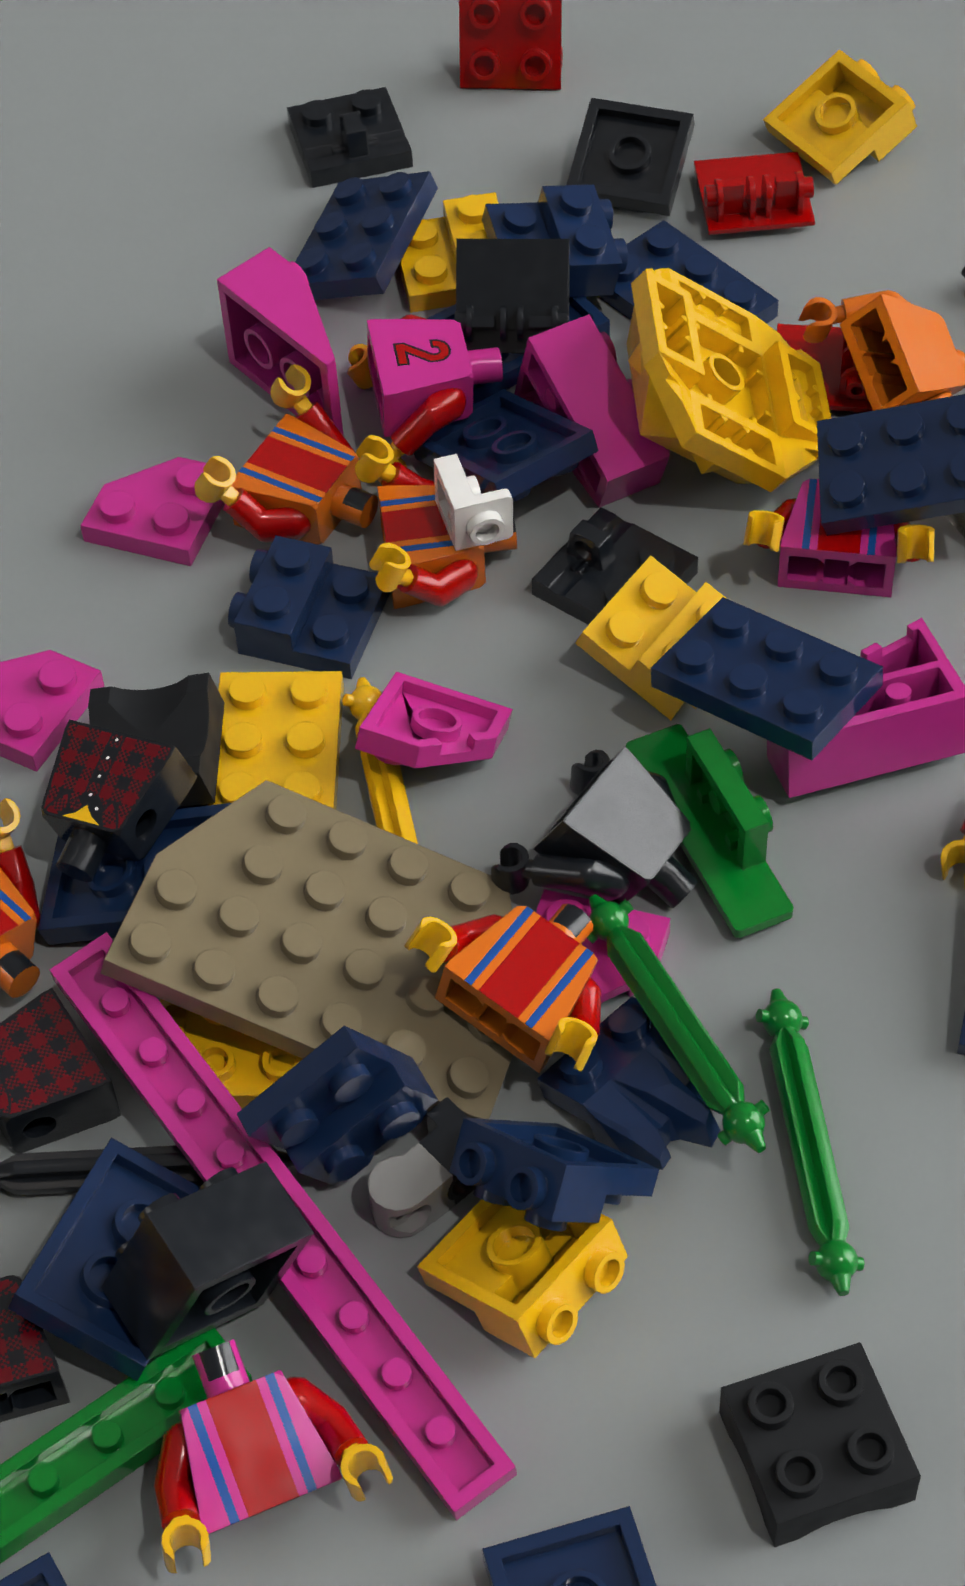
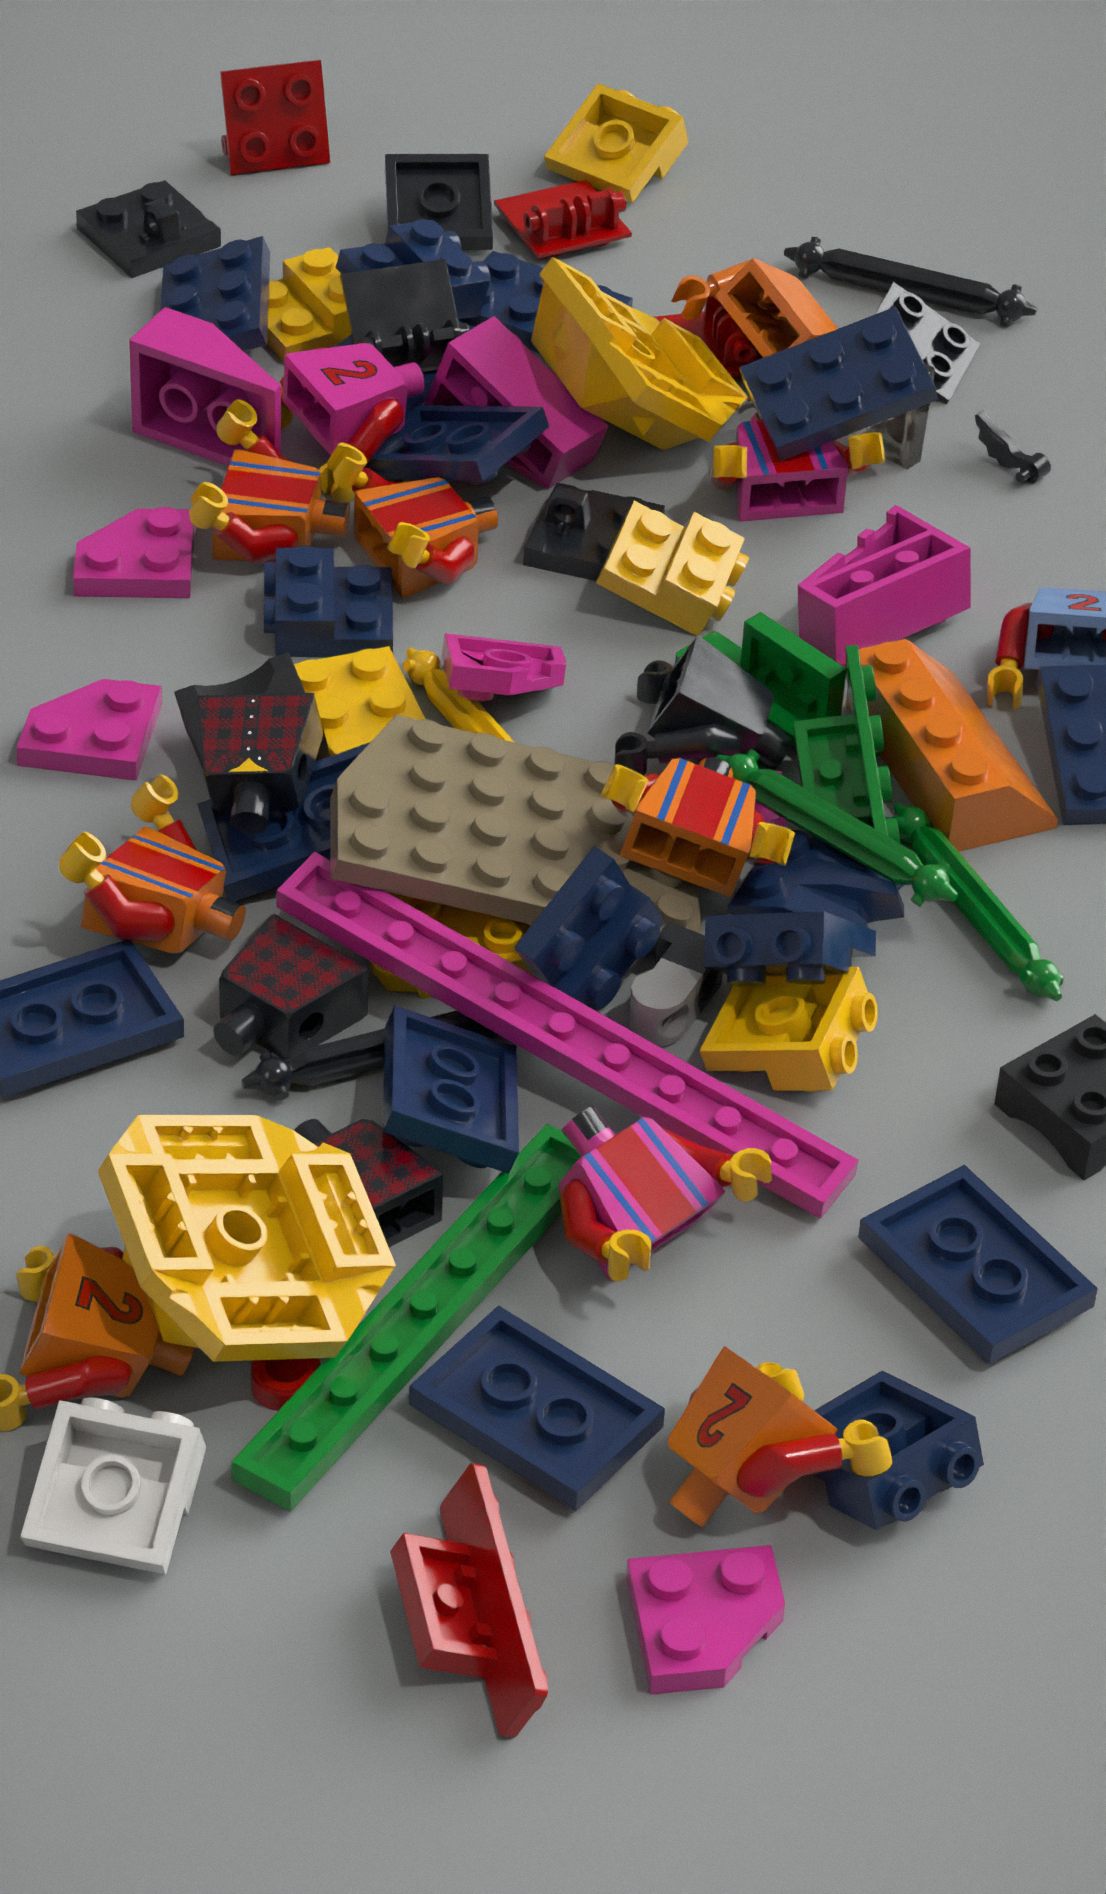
camera: 25 degrees left, 10 degrees down
(205, 1257) = (541, 1052): black brick -> none
(467, 514) = (455, 489): white bracket -> none
(723, 936) = (839, 754): none -> green bracket
(767, 677) = (791, 564): dark blue plate -> none
(863, 931) = (949, 752): none -> orange slope

